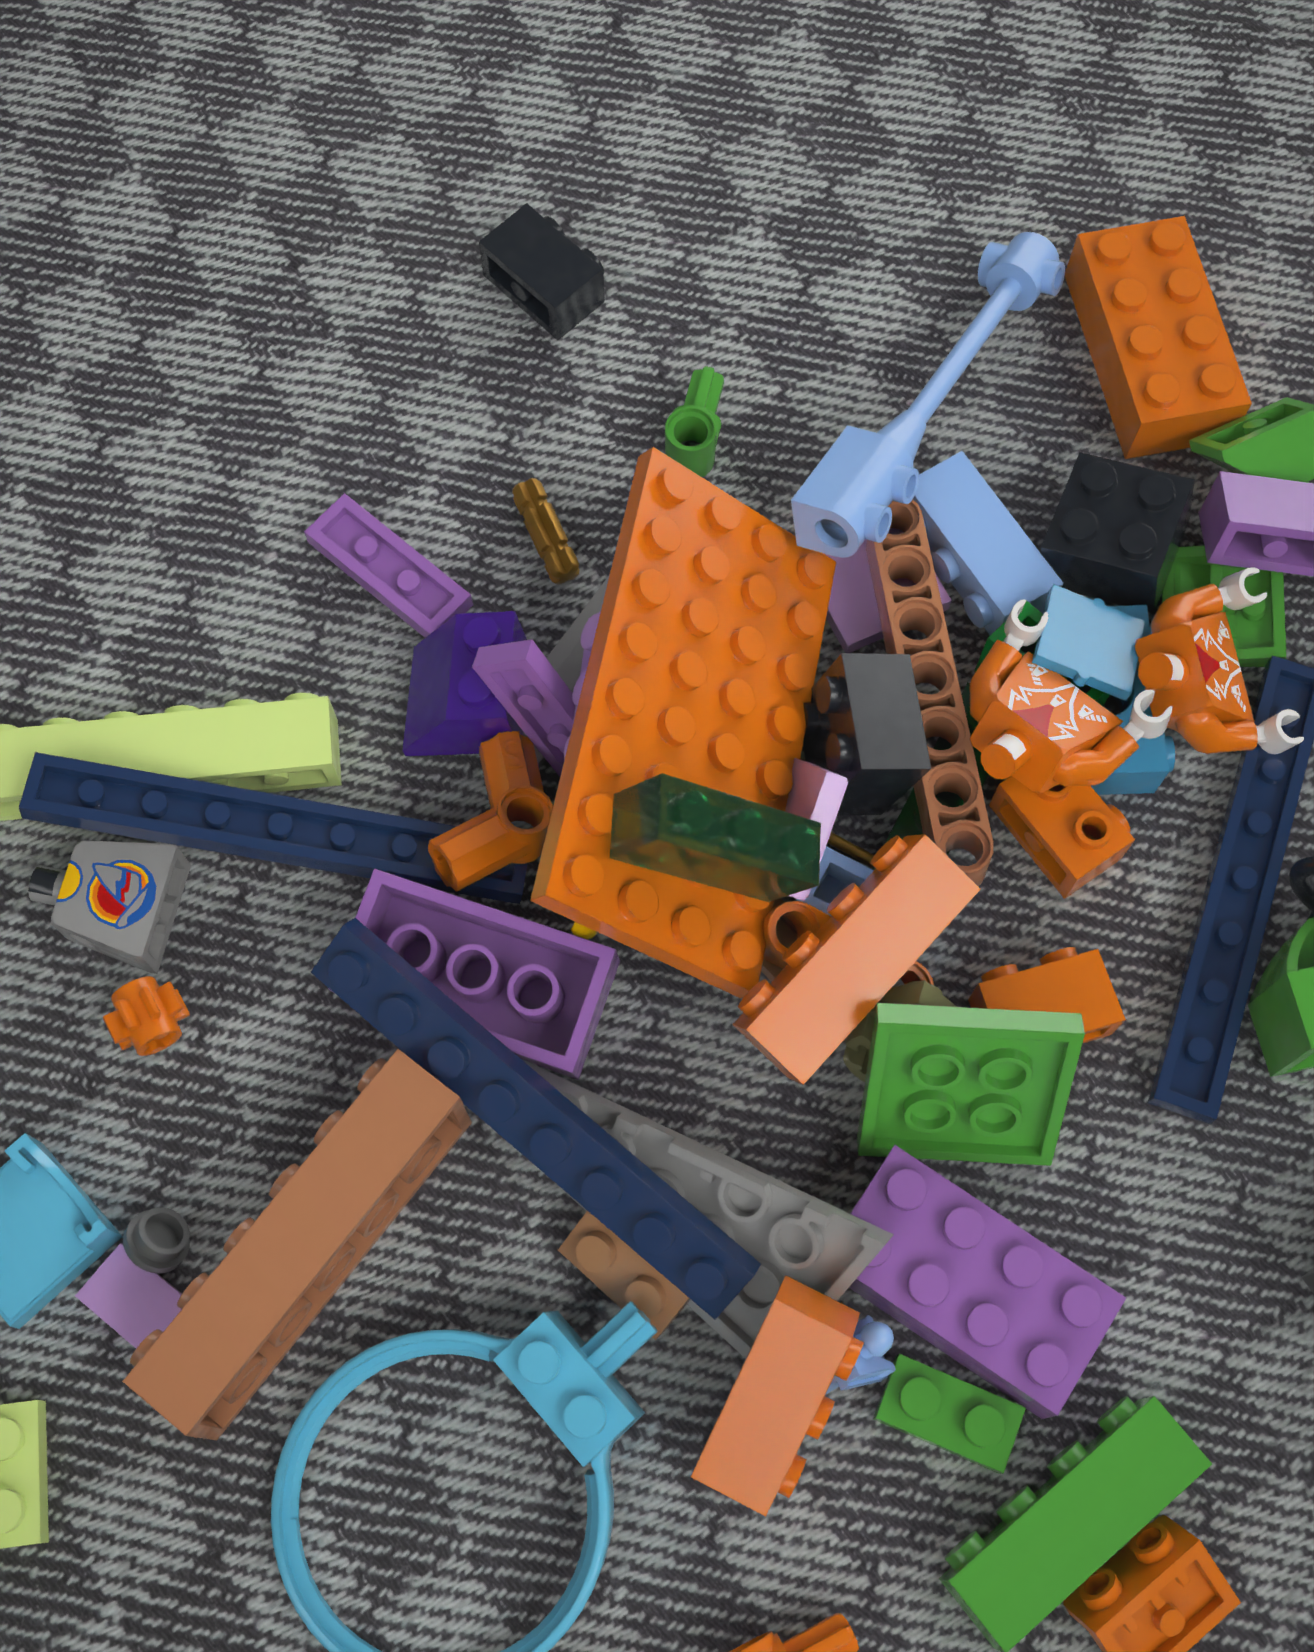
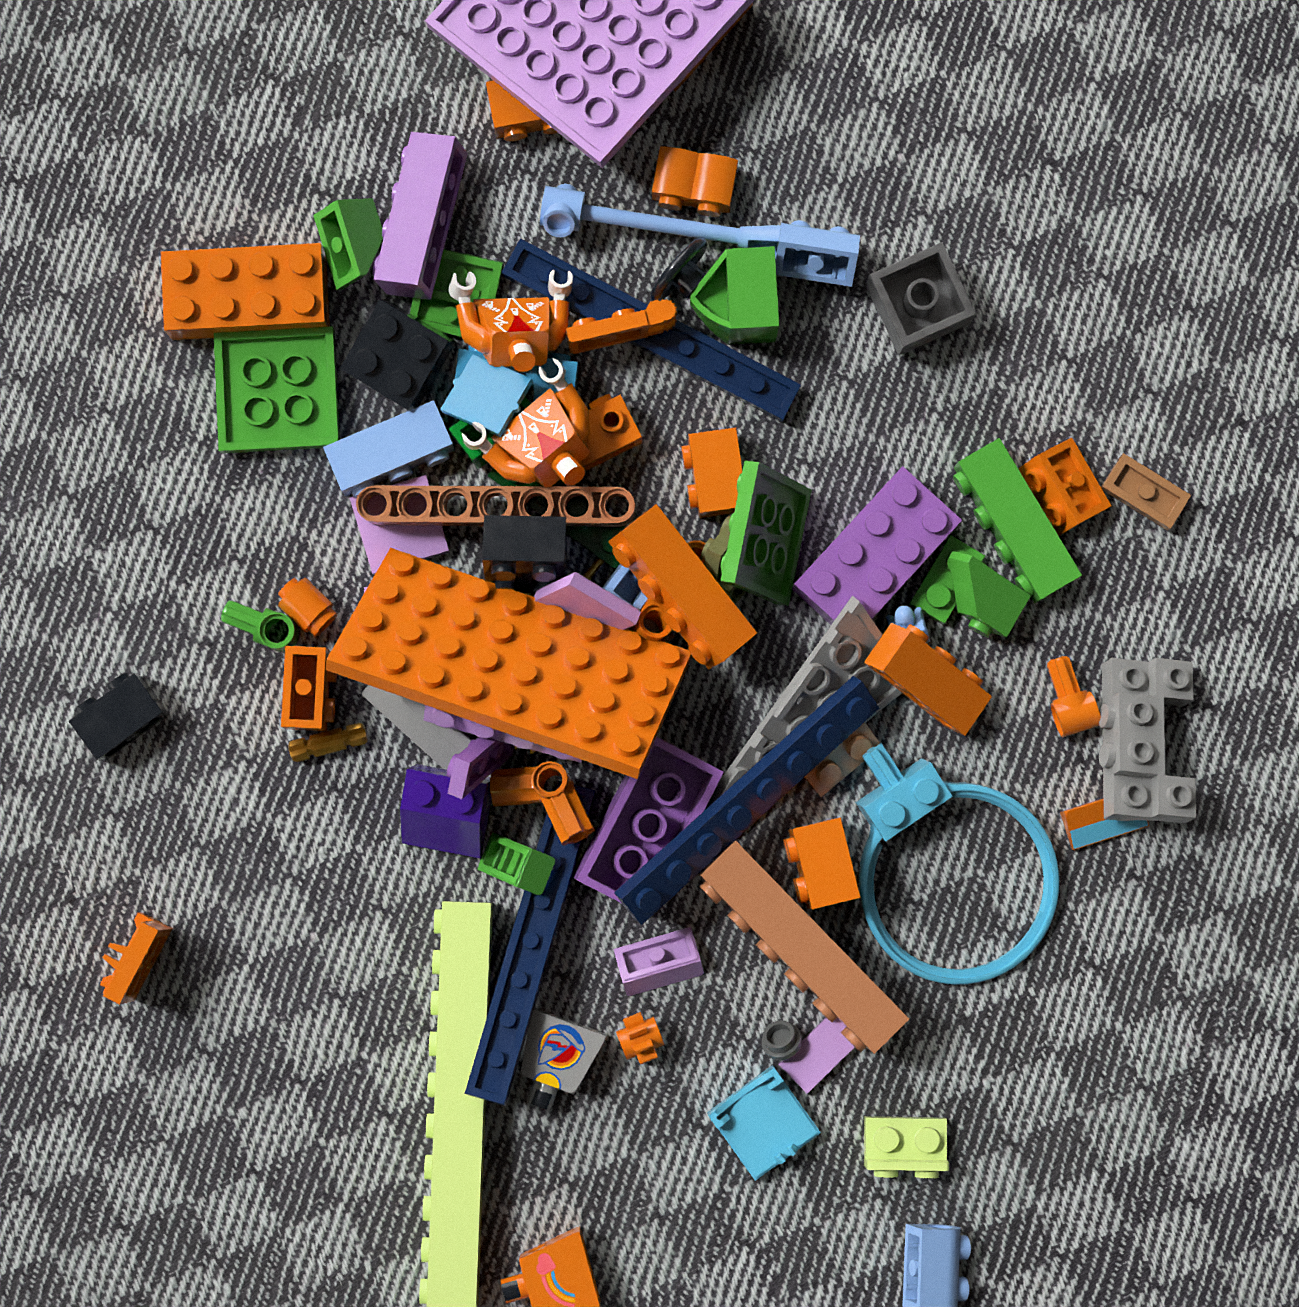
camera: 85 degrees left, 15 degrees up
(210, 322) = (136, 959): none -> orange piece
(271, 1033) = (658, 961): none -> lavender slope
(387, 566) = (342, 854): medium lavender plate -> none
(393, 795) = (519, 864): none -> bright green slope
(441, 1257) = (822, 864): none -> orange brick
(598, 477) = (306, 689): none -> orange brick
(715, 838) = (608, 661): clear green brick -> none
(738, 465) = (306, 606): none -> orange brick
(867, 470) = (343, 514): light blue bar -> none
(935, 1480) = (985, 596): none -> bright green slope
(1033, 398) = (276, 389): none -> bright green plate
(1239, 825) = (621, 327): none -> orange hinge

